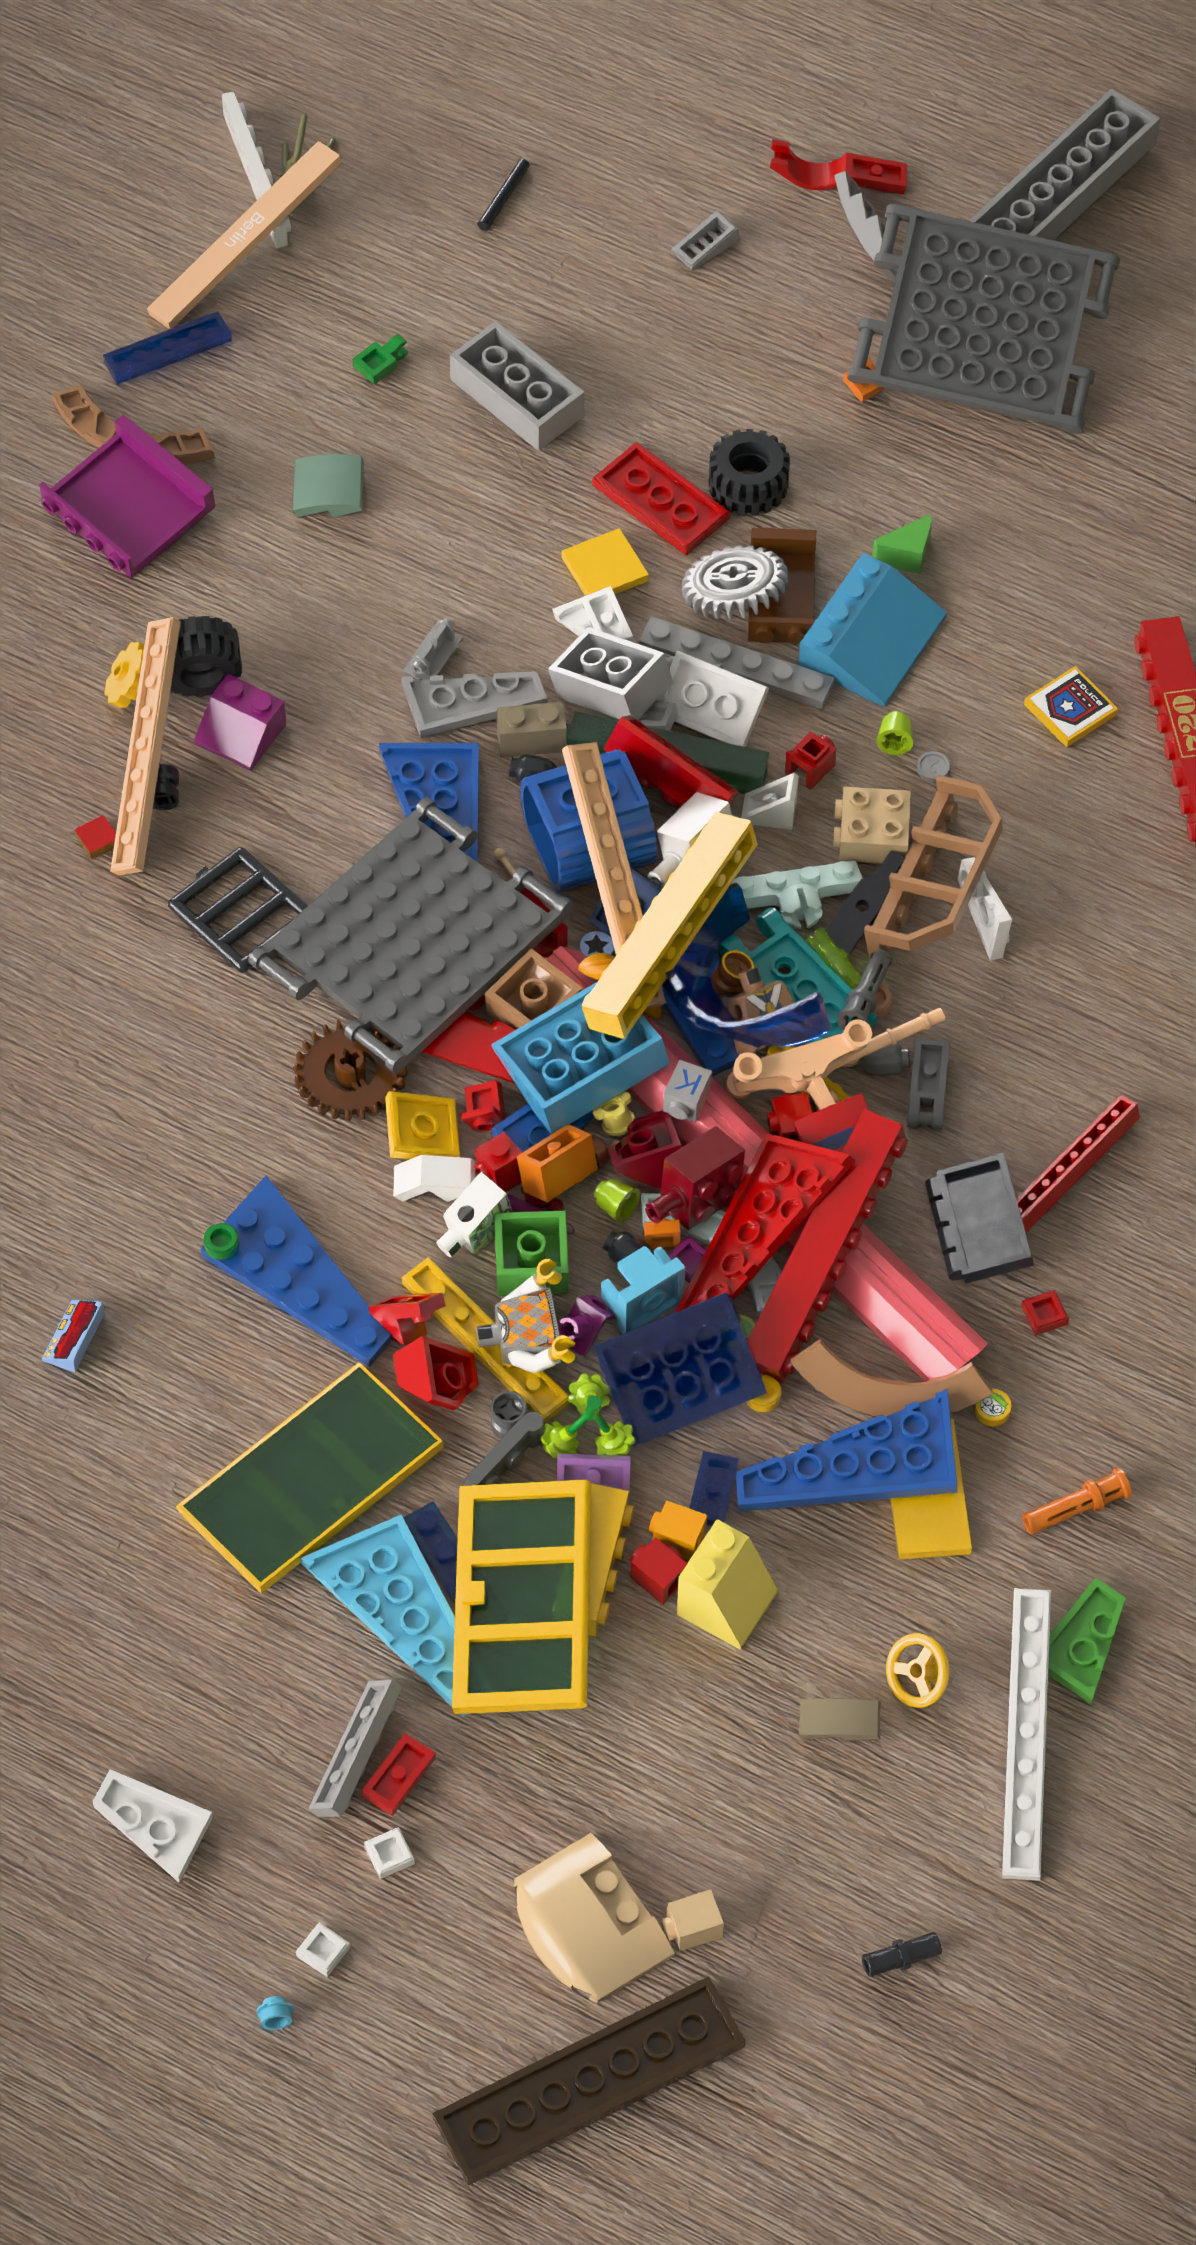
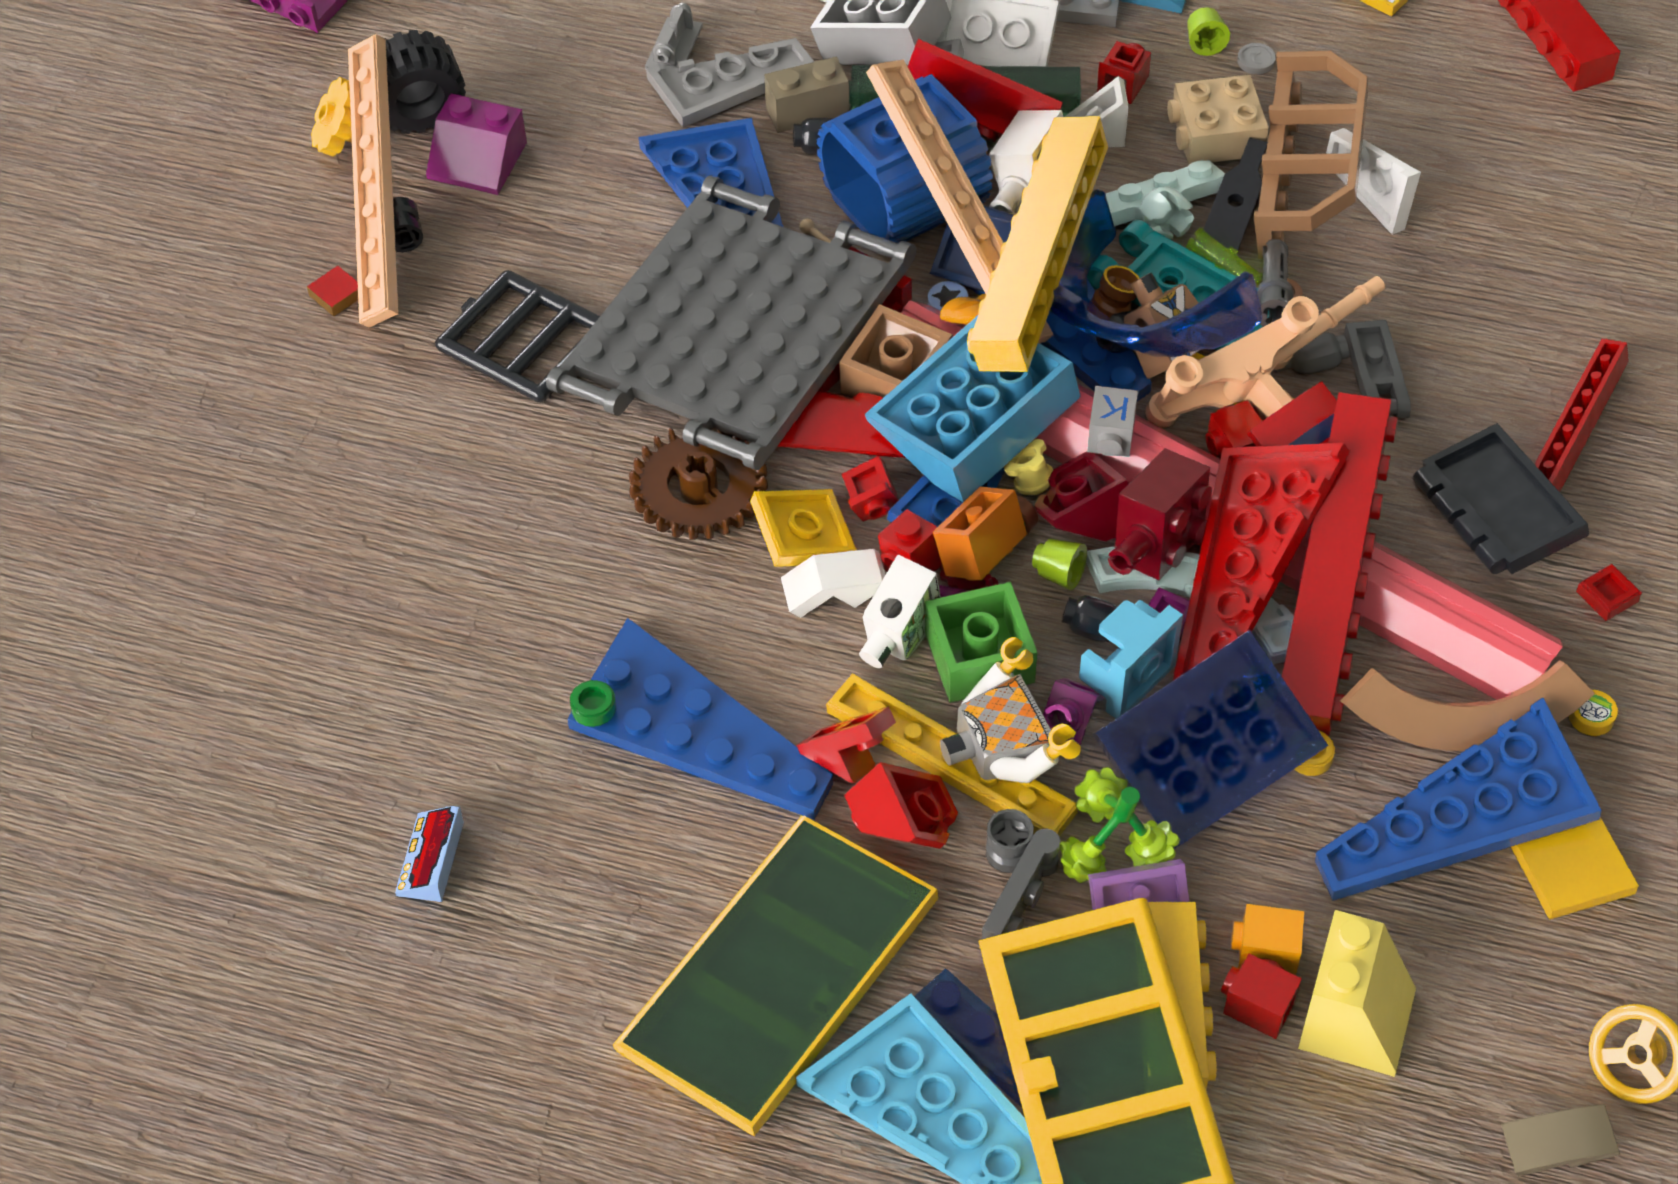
camera: 10 degrees left, 5 degrees down
(664, 1234) = (1130, 587): orange plate -> none
(714, 1486) = (1294, 875): clear blue plate -> none

